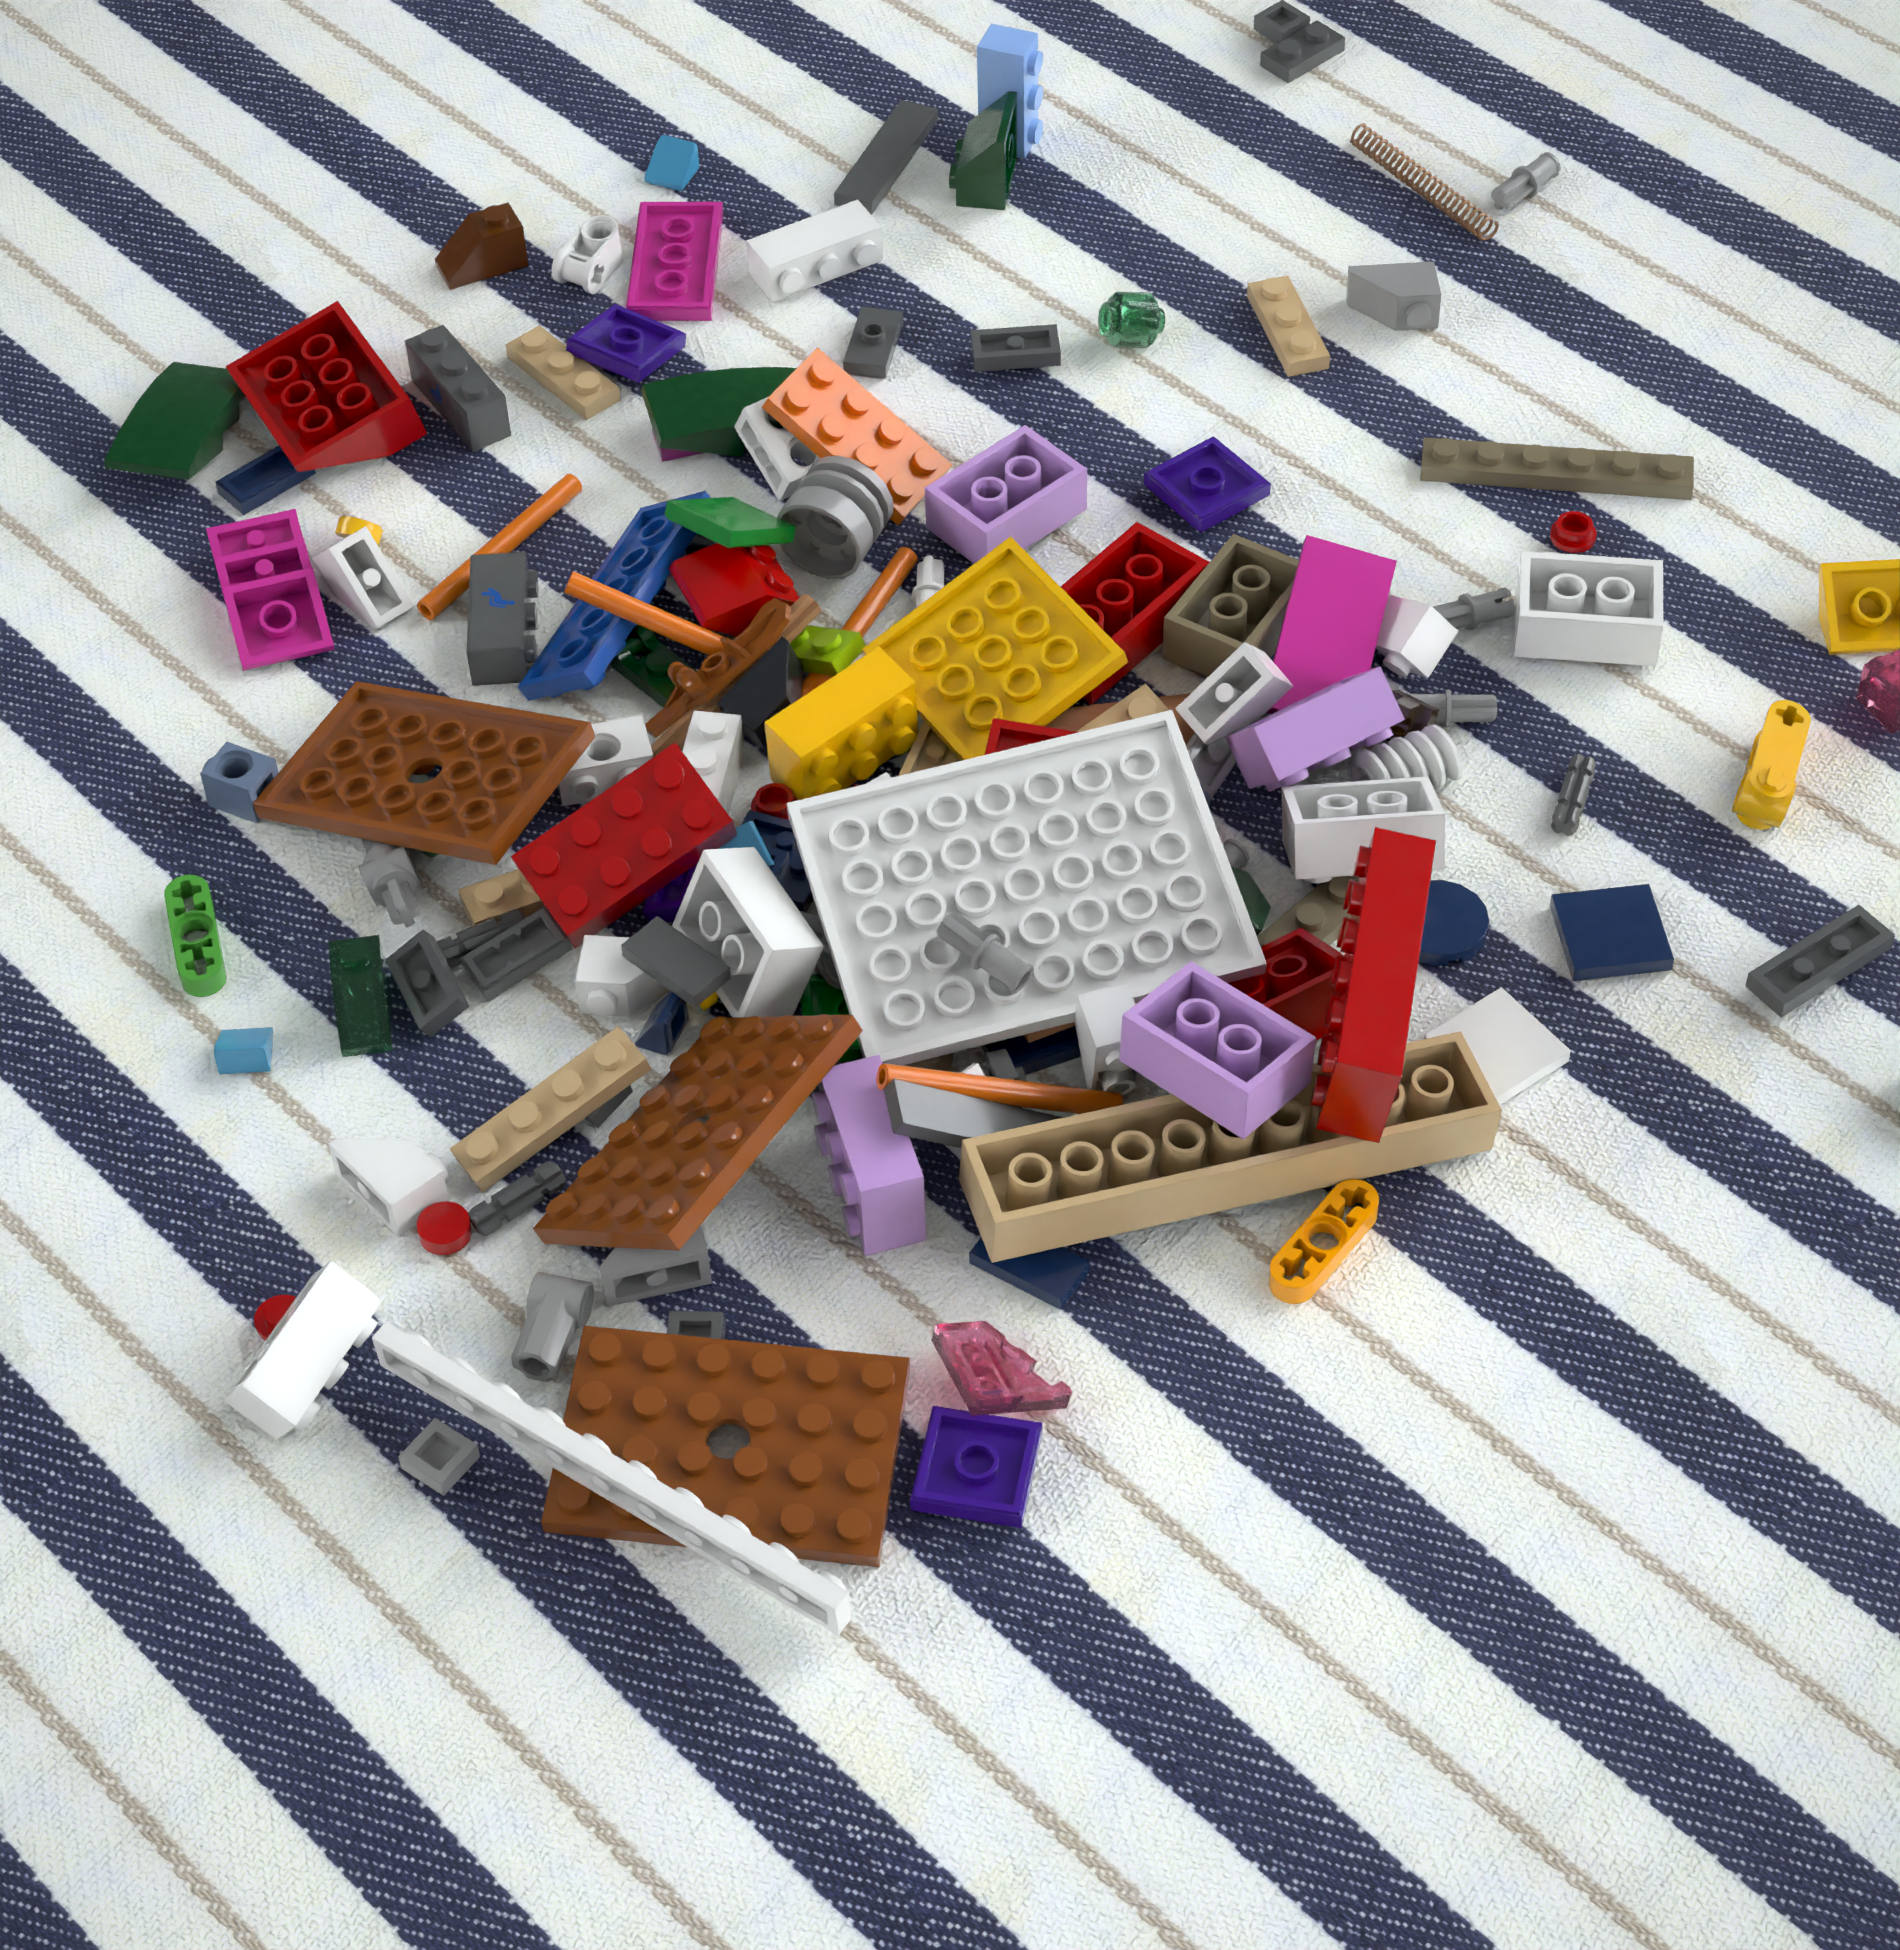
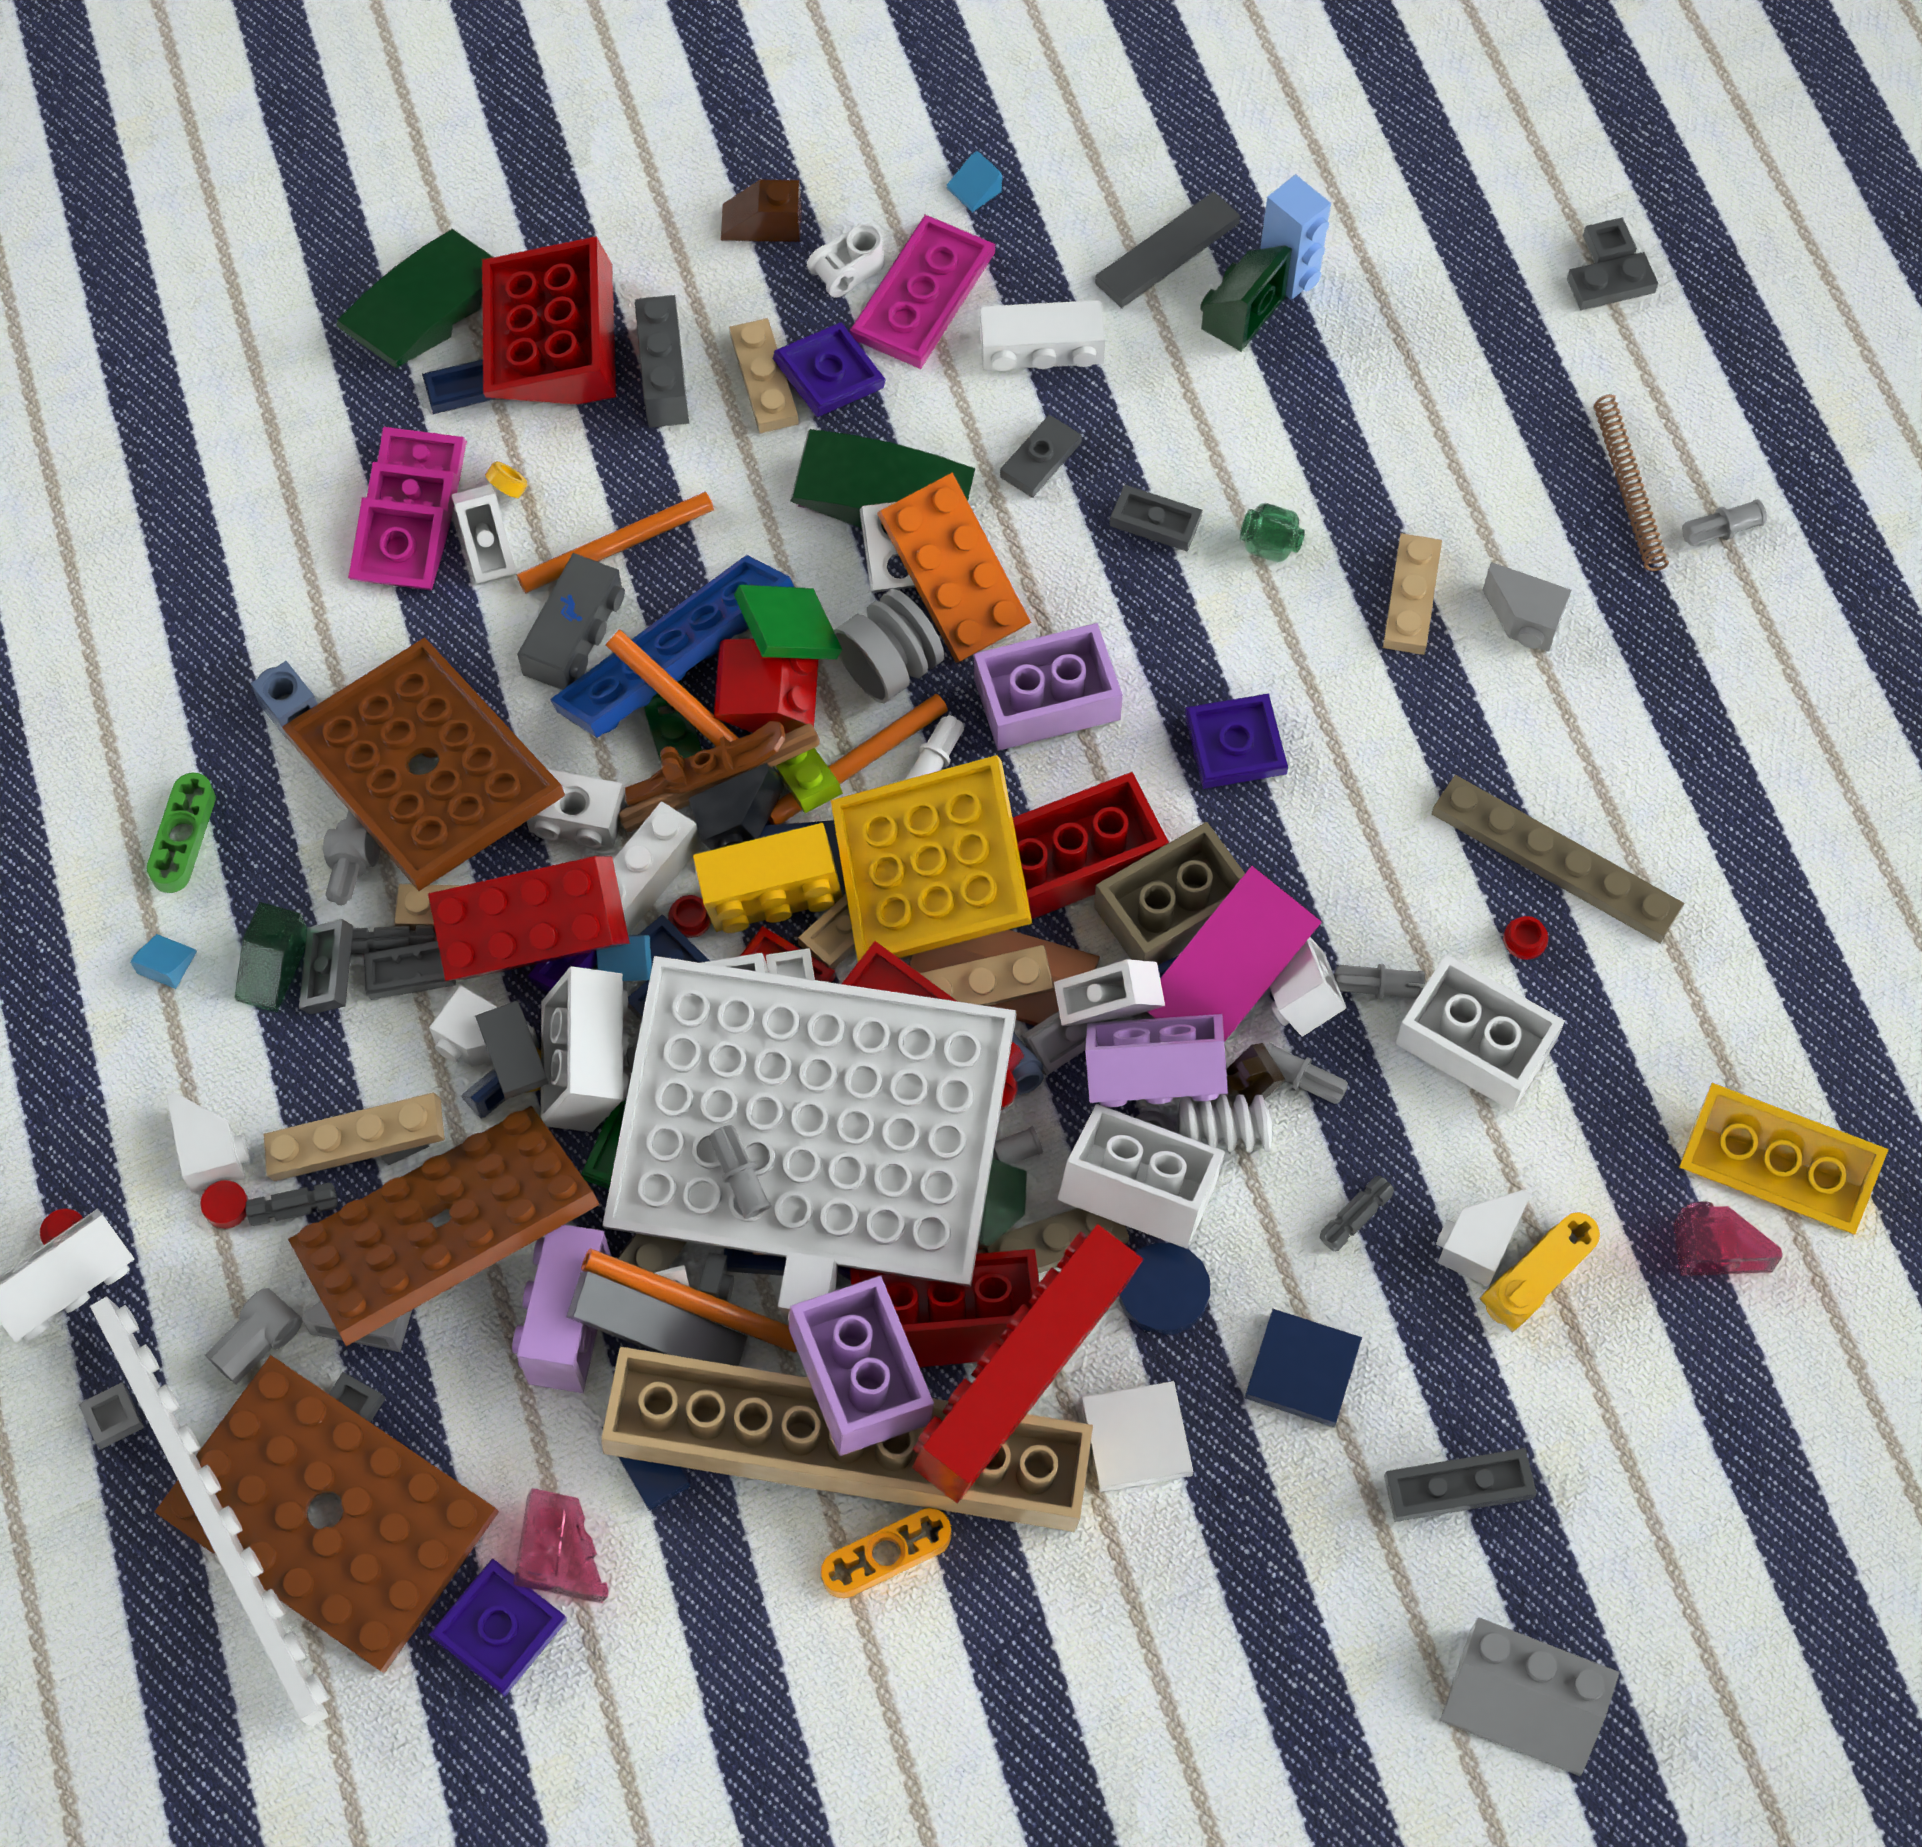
camera: 25 degrees right, 15 degrees up
(1701, 764) = (1481, 1236): none -> white slope

